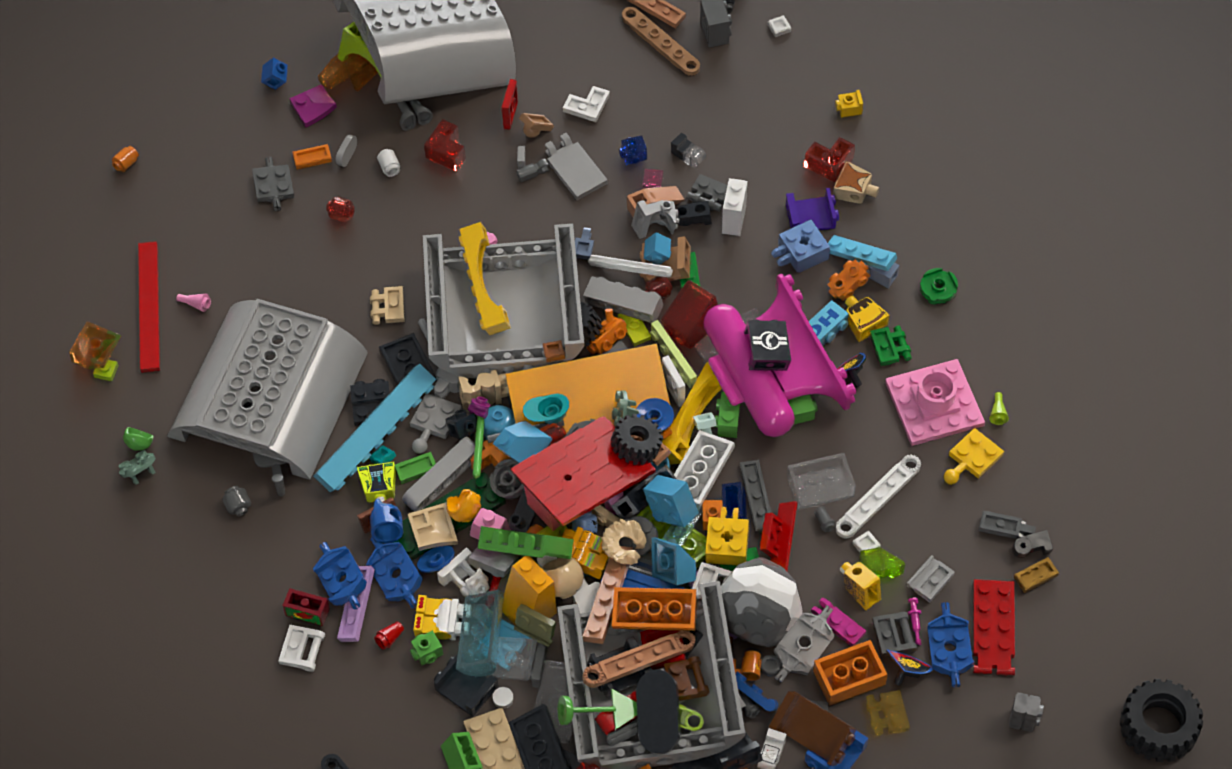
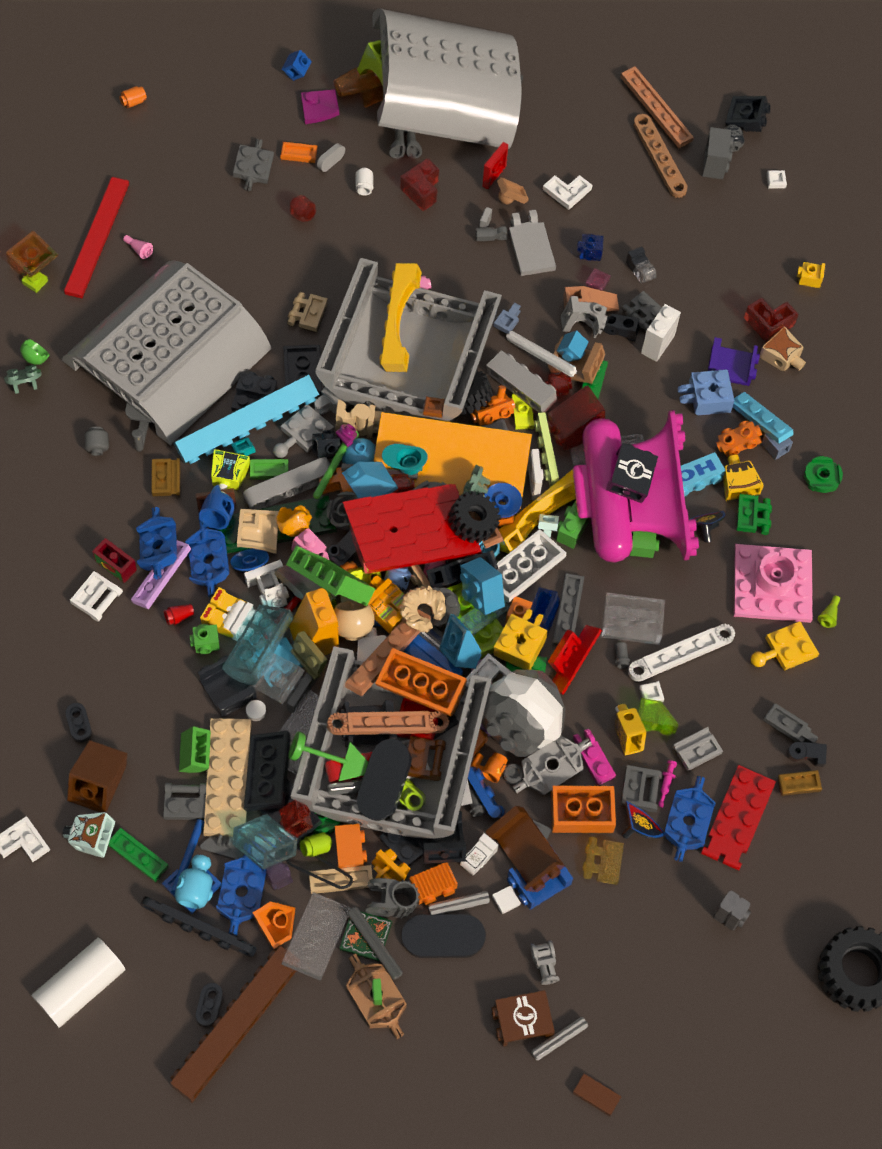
camera: 15 degrees right, 5 degrees up
(319, 511) = (165, 477): none -> pearl gold plate

